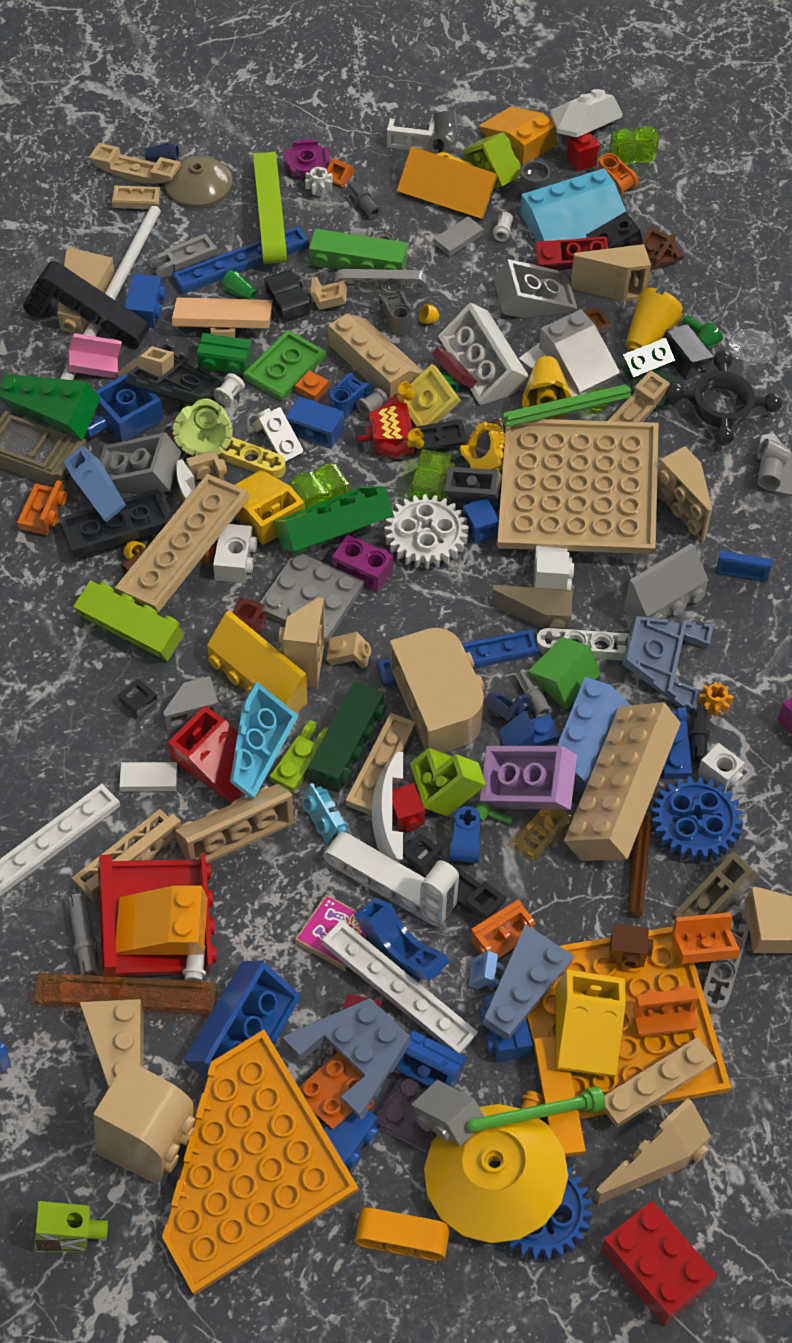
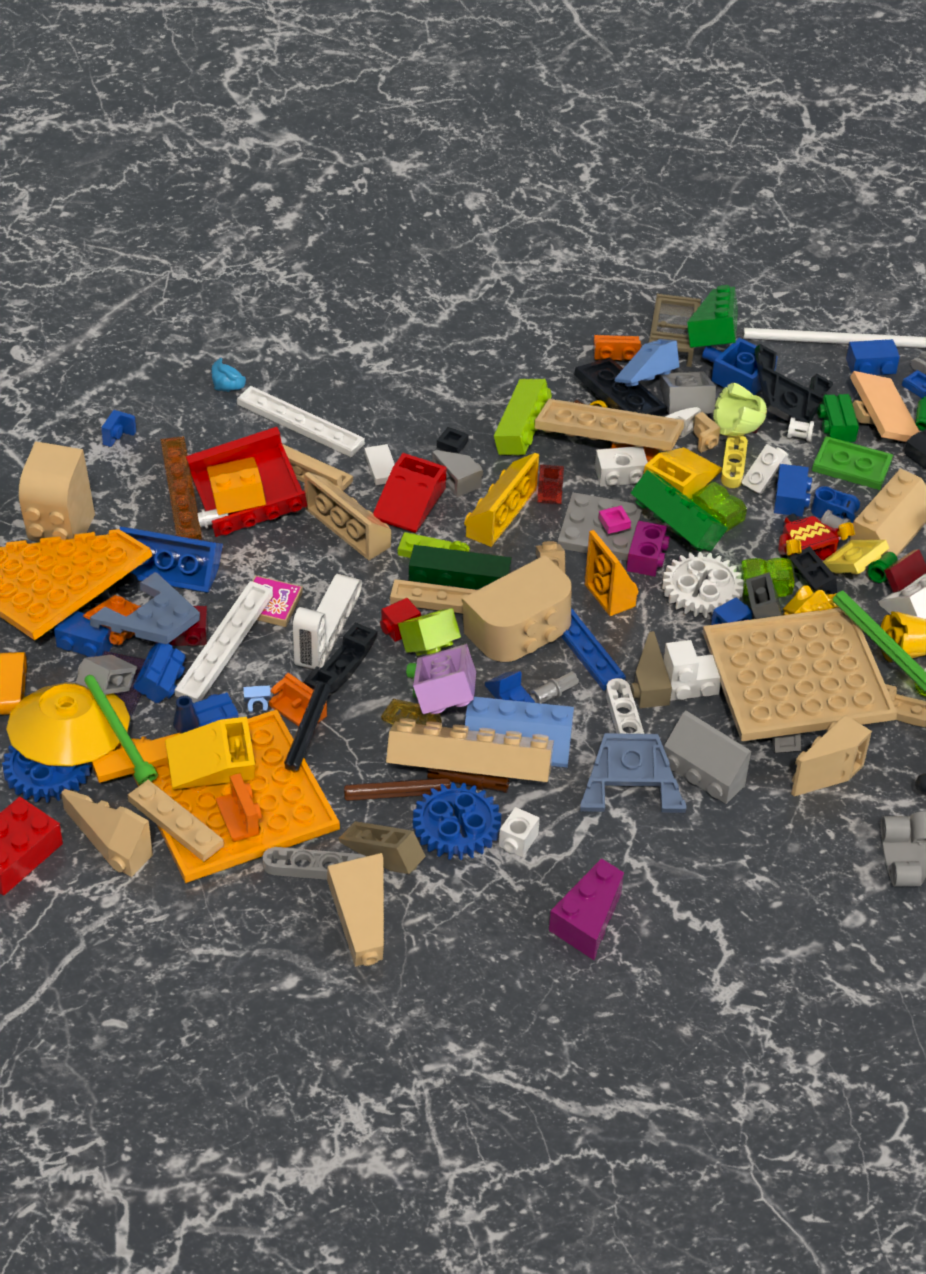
camera: 75 degrees right, 10 degrees down
(86, 301) = (838, 304): black beam -> none
(93, 355) = (789, 339): bright pink panel -> none
(94, 269) = (863, 316): tan slope -> none
(115, 1033) = (132, 491): tan wedge -> none
(152, 360) = (797, 370): tan slope -> none
(261, 734) = (429, 504): medium azure wedge -> none
(304, 639) = (531, 512): tan slope -> none
(312, 386) = (838, 481): orange plate -> none
(318, 804) = (387, 564): medium azure hinge -> none
(324, 576) = (614, 519): none -> dark pink plate
(387, 841) = (422, 593): white slope -> none
(393, 939) = (268, 632): blue arch -> none
(410, 603) = (607, 578): none -> light orange slope
(465, 838) = (382, 662): blue piece -> none
(505, 708) = (531, 667): dark blue bracket -> none
(526, 980) = (267, 719): sand blue wing -> none
(530, 1040) = (185, 715): none -> dark blue cone
(556, 924) = (307, 726): none -> black axle
(564, 669) = (589, 700): bright green slope -> none
(630, 945) = (299, 777): reddish brown brick -> none
(679, 760) = (541, 797): blue plate -> none
(698, 734) = (556, 812): black pin -> none
(704, 938) = (321, 830): orange bracket -> none
(716, 699) = (596, 818): light orange gear -> none
(743, 566) = (767, 822): blue tile -> none

